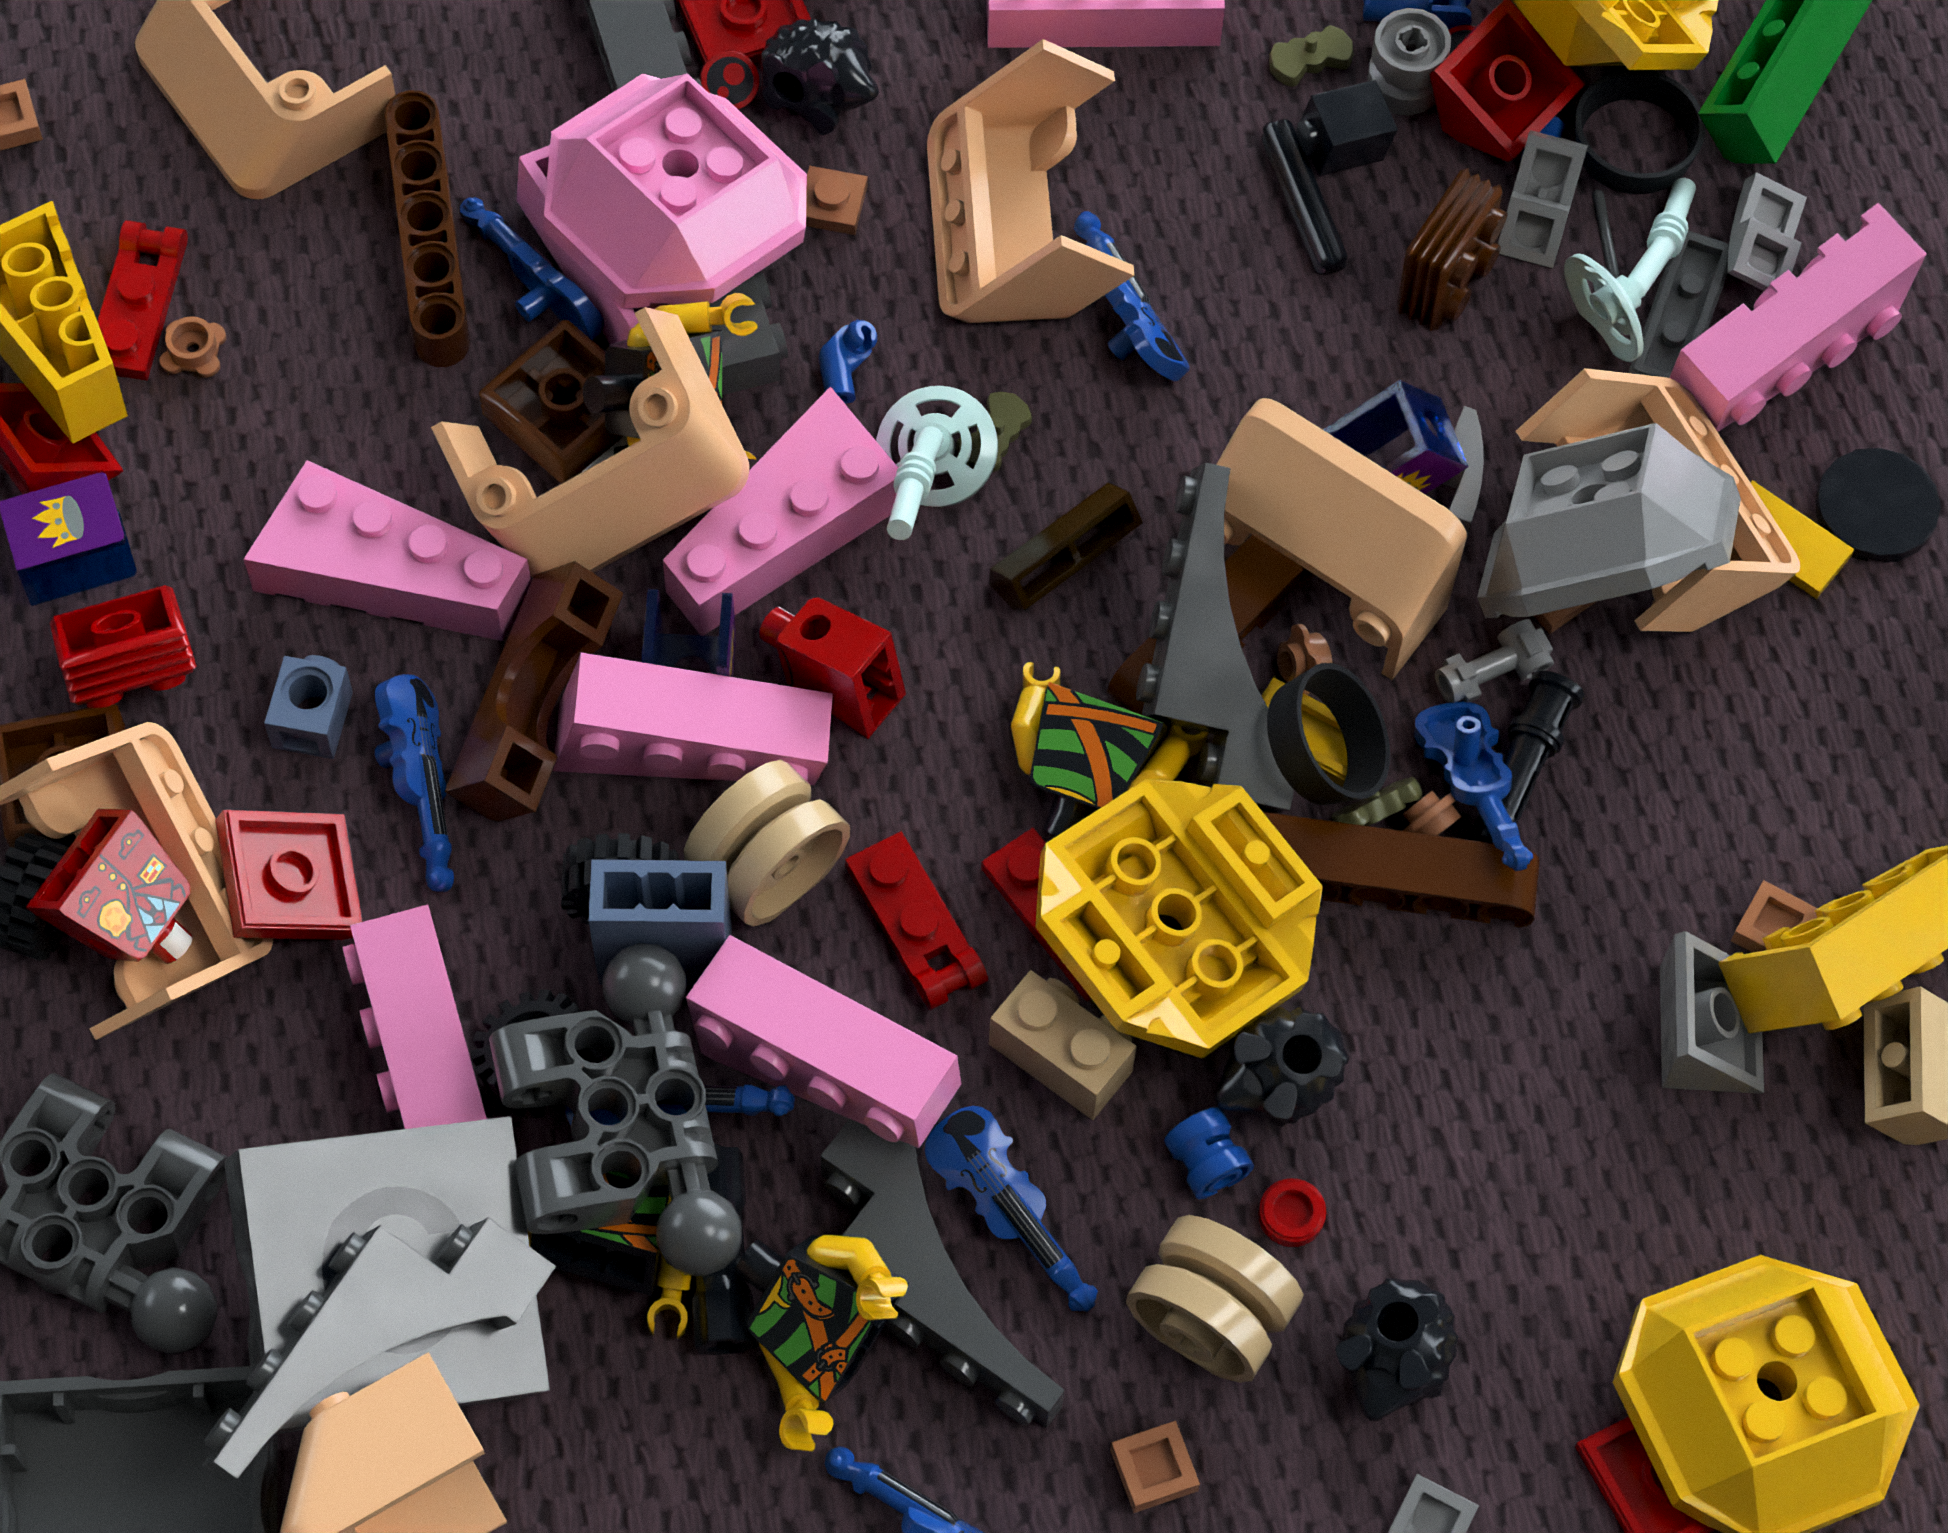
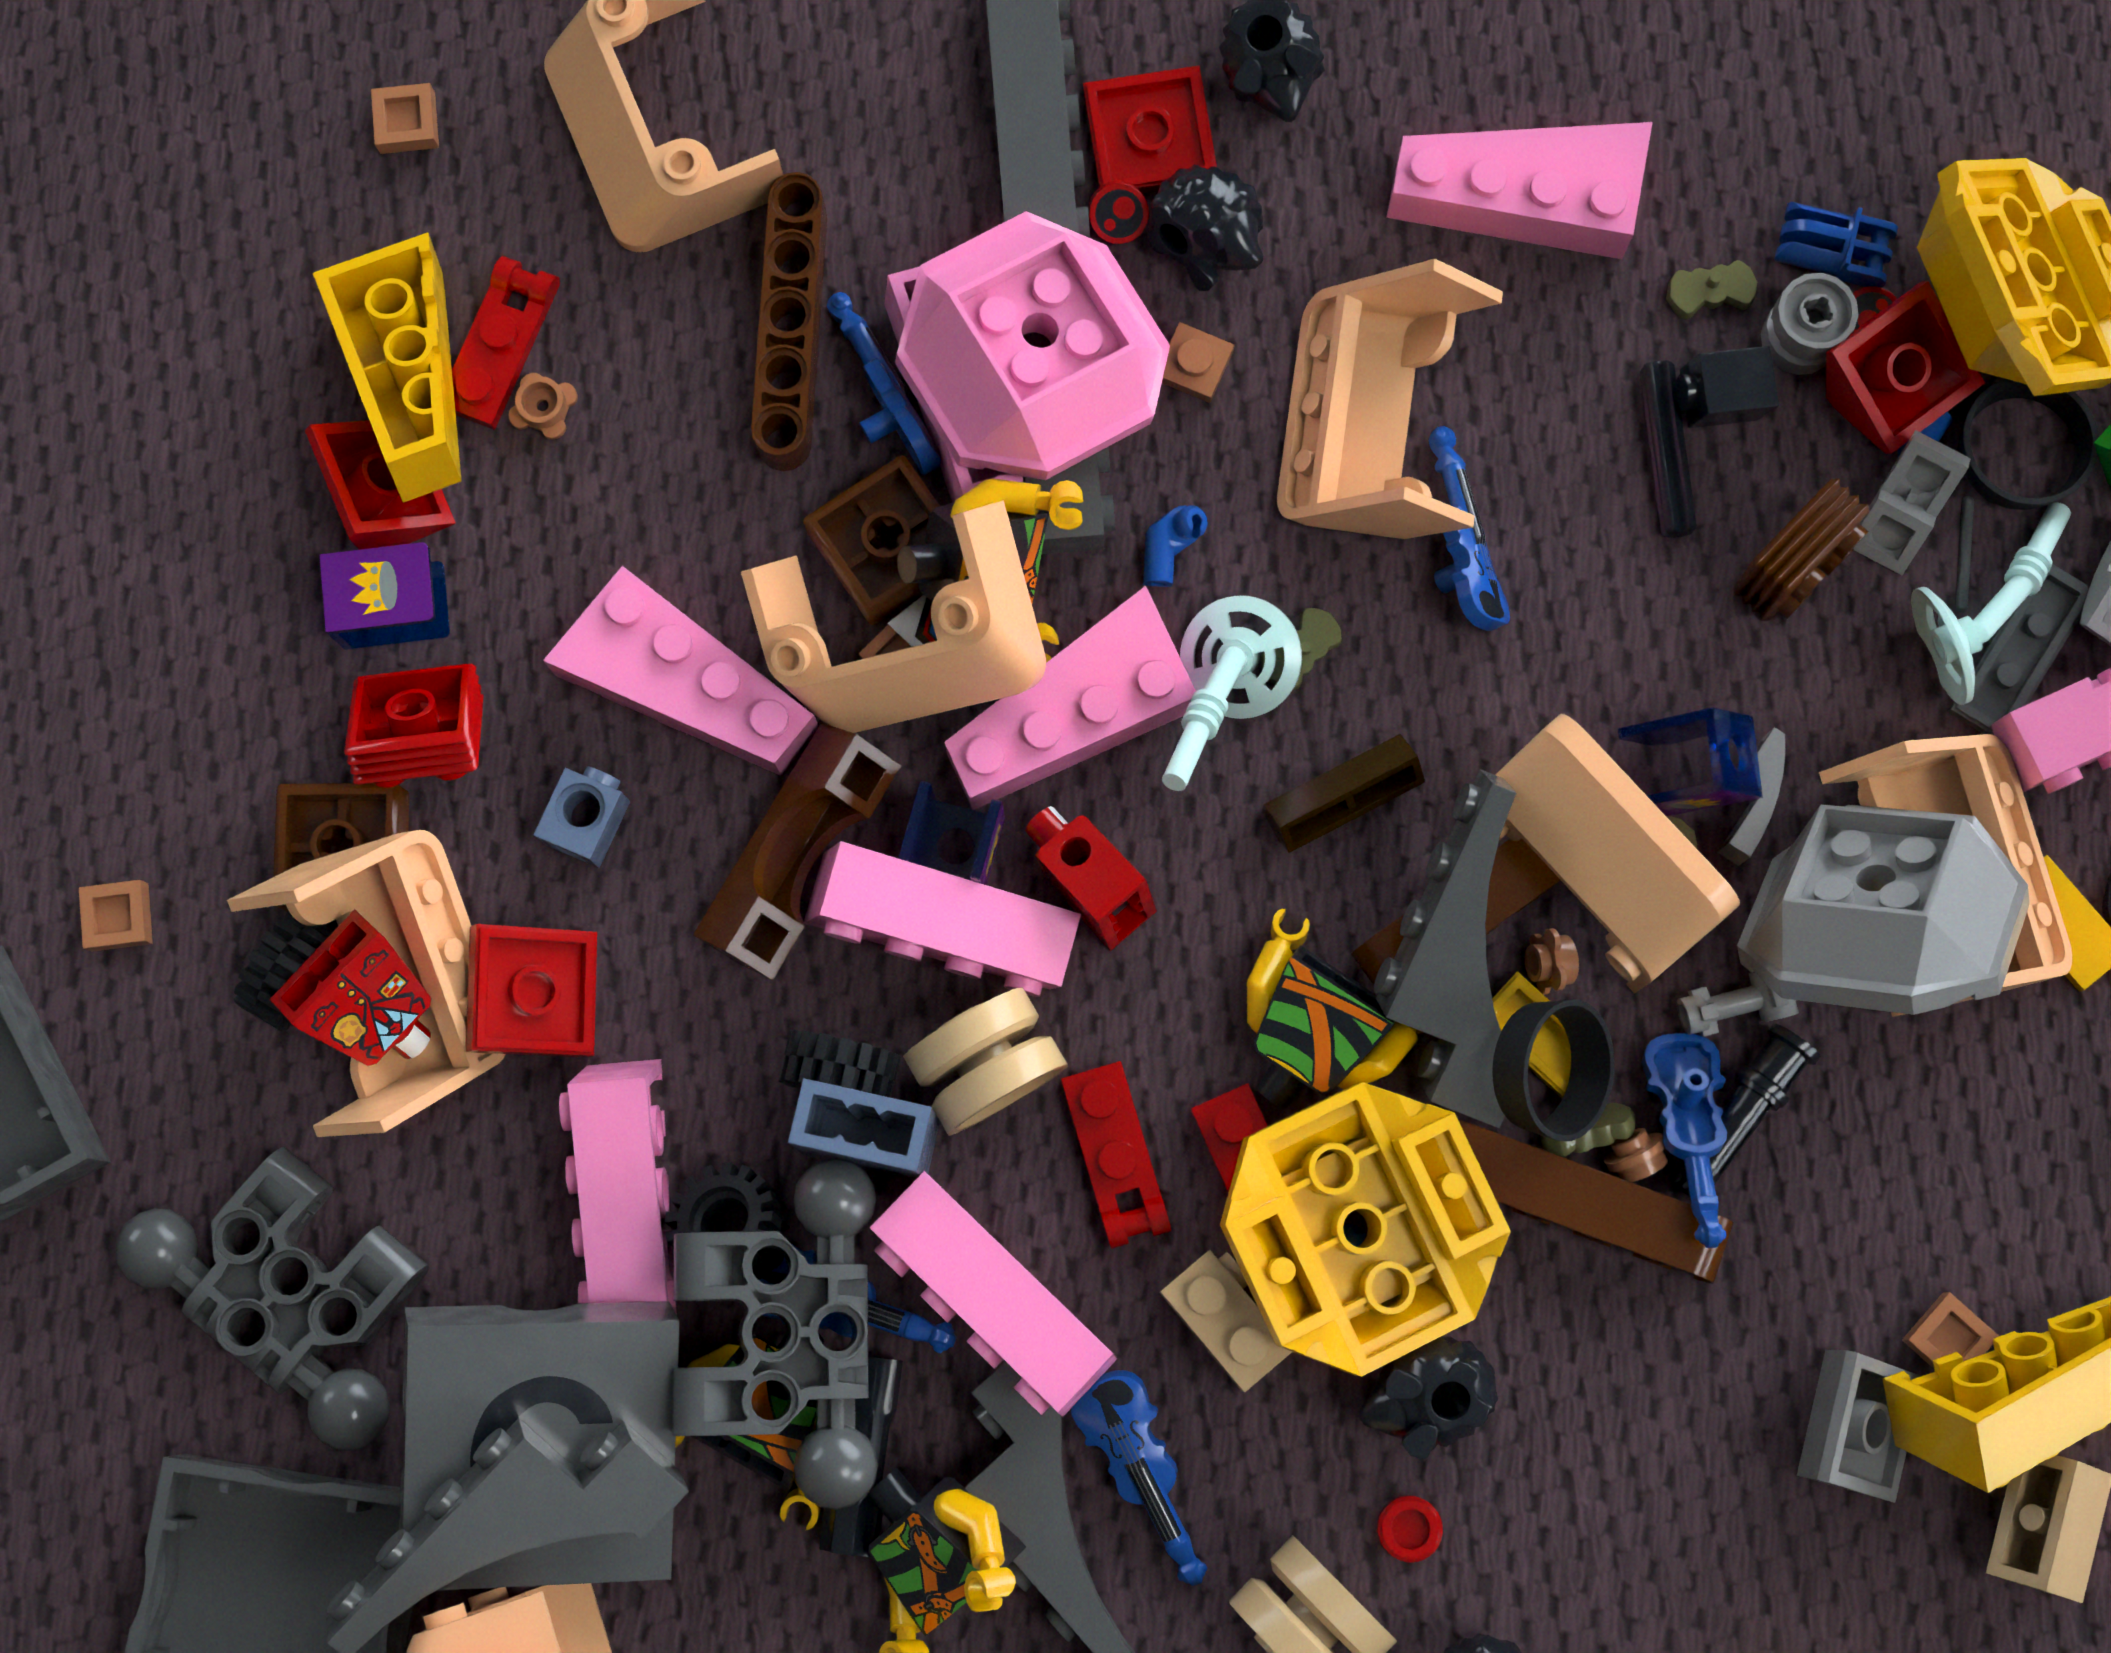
camera: 20 degrees right, 15 degrees up
(412, 723) = (671, 863): blue piece -> none
(1208, 1152) = (1345, 1473): blue wheel -> none

